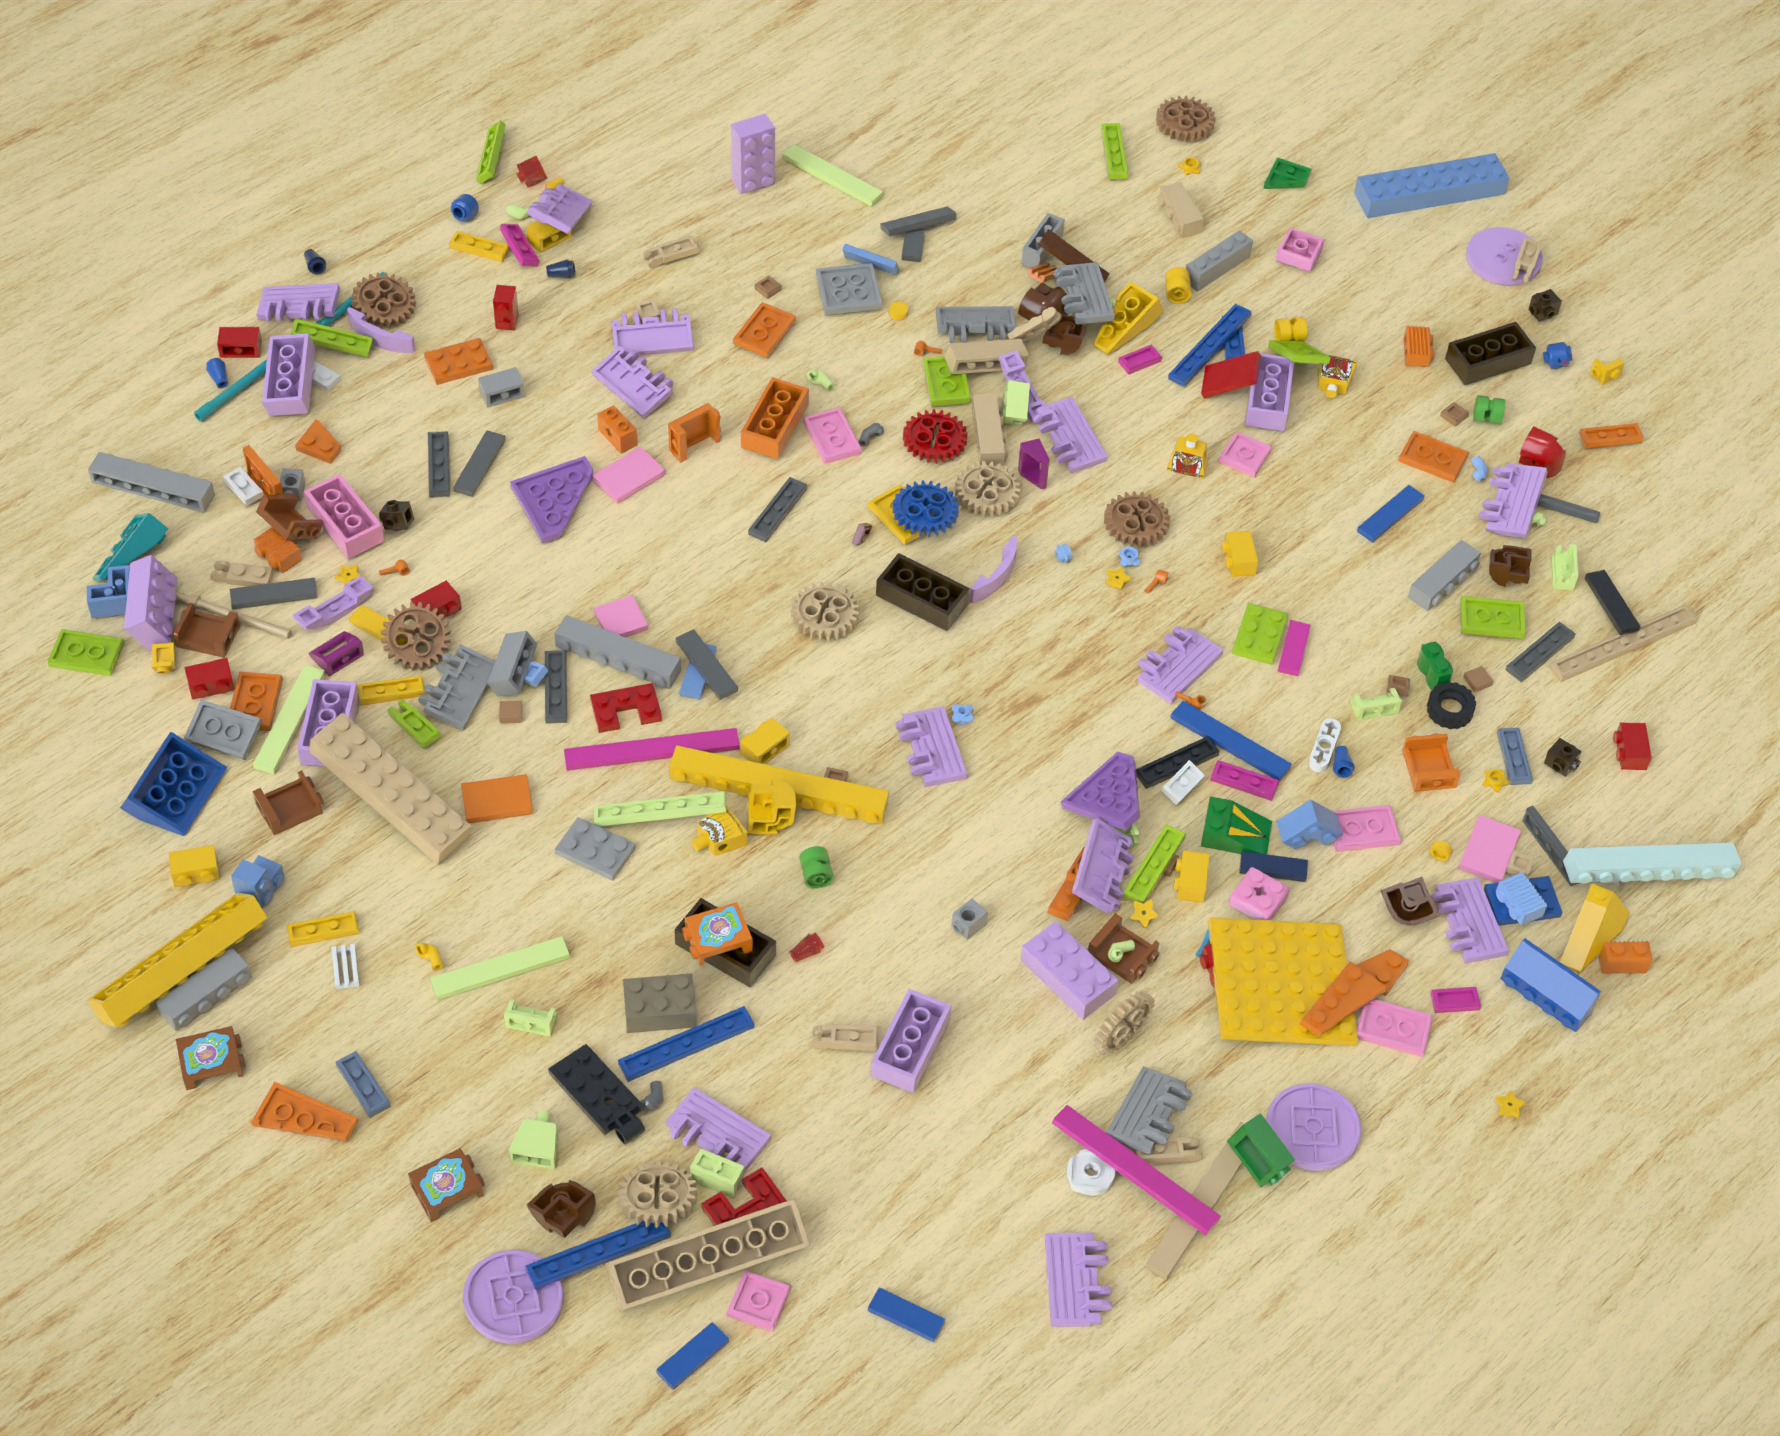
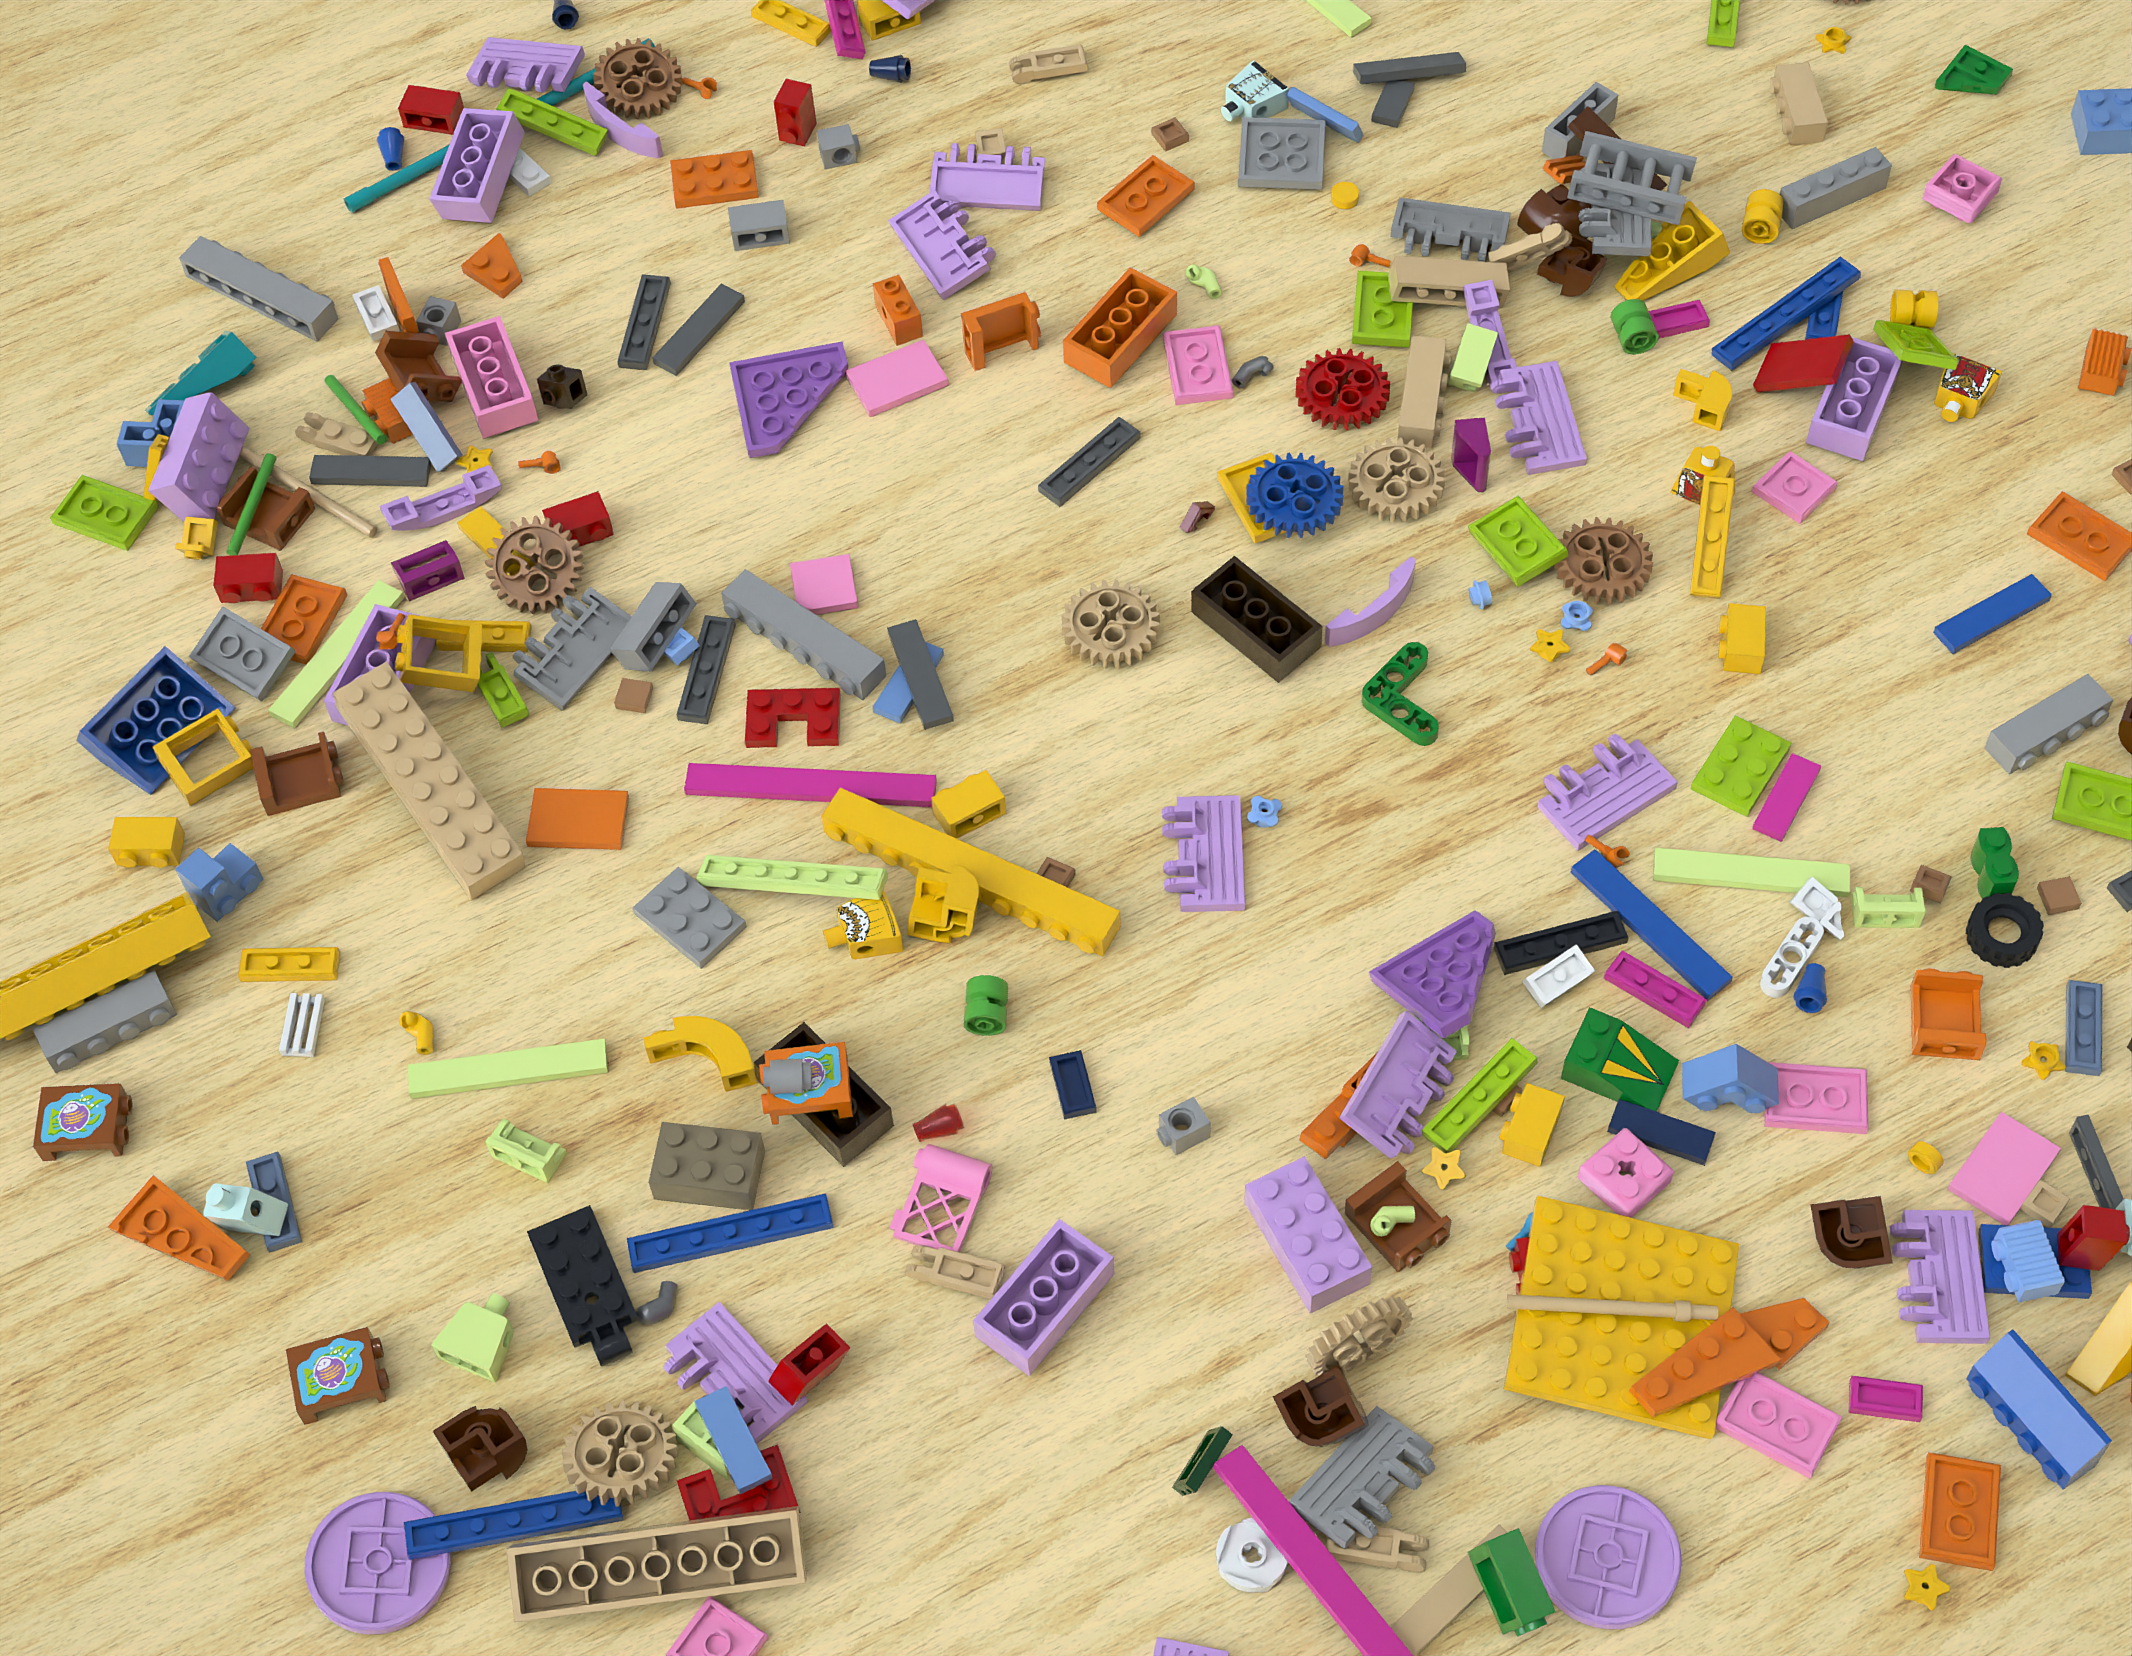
camera: 20 degrees right, 5 degrees up
(120, 613) = (154, 456): none -> yellow tile
(196, 629) = (251, 504): none -> bright green bar
(203, 817) = (191, 735): none -> yellow window
(250, 553) = (355, 409): none -> bright green bar
(309, 556) = (426, 427): none -> tile
(331, 700) = (388, 639): none -> orange hand
(345, 1088) = (231, 1206): none -> light aqua torso
(373, 687) = (468, 633): none -> yellow window
(433, 300) = (705, 86): none -> orange hand
(540, 326) = (837, 146): none -> light grey brick
(635, 923) = (708, 1039): none -> yellow arch
(708, 929) = (788, 1076): none -> light grey brick
(735, 1167) = (733, 1440): none -> medium blue tile
(769, 1111) = (809, 1364): none -> red brick
(819, 252) = (1254, 94): none -> light aqua torso
(822, 977) = (948, 1173): none -> bright pink piece
(887, 907) = (1072, 1084): none -> dark blue tile
(1024, 628) = (1392, 698): none -> green beam
(1042, 1121) = (1202, 1461): none -> dark green tile
(1078, 515) = (1518, 541): none -> lime tile
(1090, 283) = (1625, 196): none -> light grey fence
(1111, 1073) = (1322, 1409): none -> reddish brown brick
(1115, 367) = (1634, 326): none -> bright green wheel
(1176, 403) = (1710, 395): none -> yellow brick
(1203, 492) = (1712, 536): none -> yellow tile
(1284, 698) = (1748, 871): none -> yellowish green tile
(1317, 969) = (1680, 1311): none -> tan bar
(1332, 708) = (1820, 904): none -> white slope
(1518, 1057) = (1960, 1511): none -> orange tile
(1556, 876) = (2092, 1237): none -> red brick

